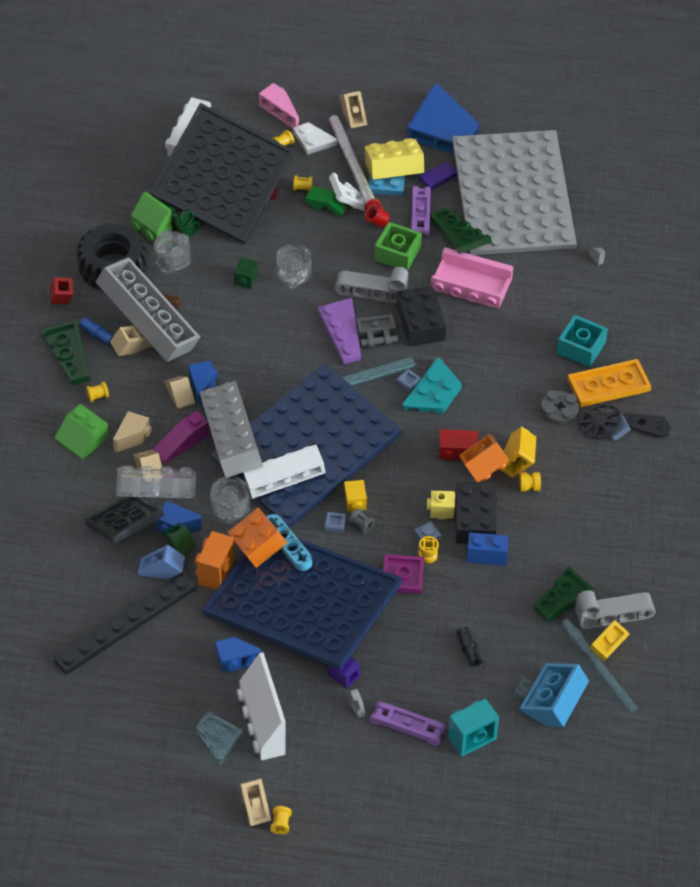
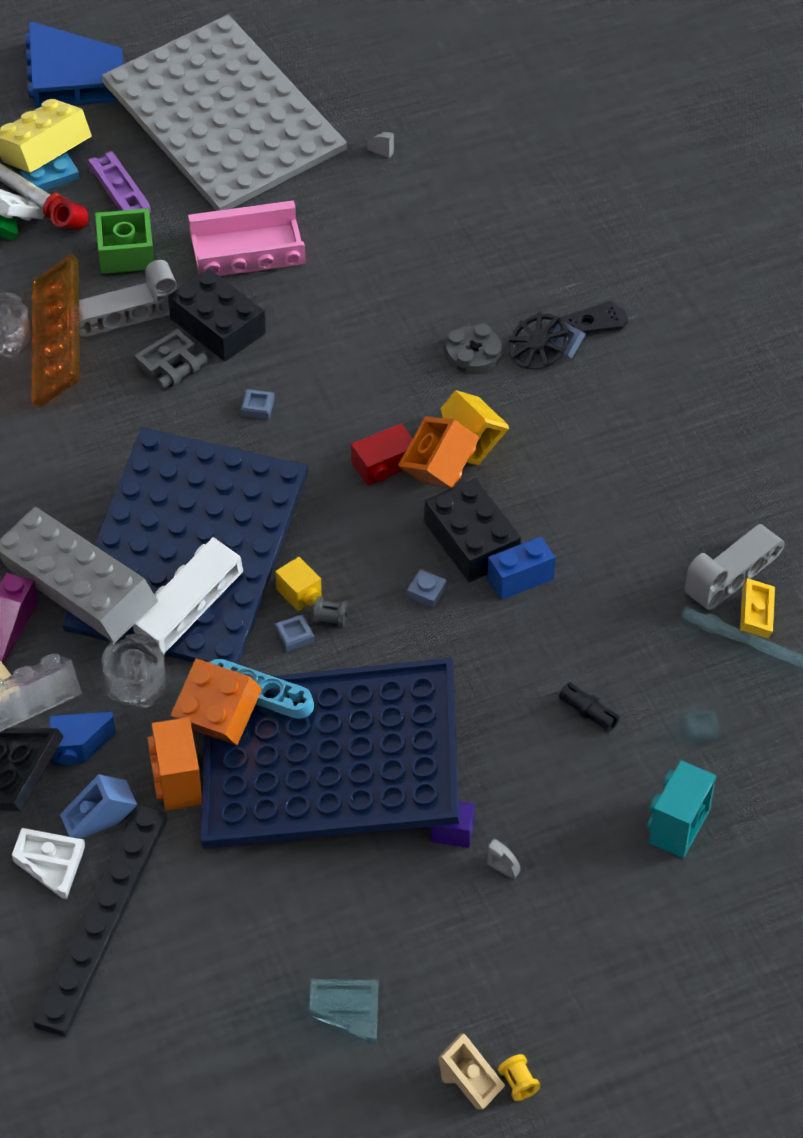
camera: 30 degrees left, 0 degrees up
(118, 578) = (49, 858): none -> white wing
(179, 539) = (102, 757): dark green brick -> none
(235, 654) = (291, 878): blue slope -> none
(262, 710) = (392, 932): white slope -> none
(321, 283) = (55, 331): none -> clear orange plate
(342, 329) = (120, 377): medium lavender wing -> none
(380, 371) = (215, 406): clear light blue axle -> none
(407, 722) = (586, 849): medium lavender plate -> none
(409, 569) = (434, 643): magenta plate -> none
(428, 549) = (445, 607): yellow wheel -> none
(434, 390) = (300, 400): teal wing -> none
(438, 175) = (110, 134): dark purple tile -> none
(441, 504) = (422, 539): light yellow brick -> none
(459, 232) = (191, 189): dark green wing -> none
(527, 482) = (508, 457): yellow wheel -> none
(555, 694) = (744, 711): dark azure slope -> none
(561, 595) = (657, 579): dark green wing -> none
(582, 341) = (445, 253): teal brick -> none
(609, 382) = (513, 290): light orange plate -> none

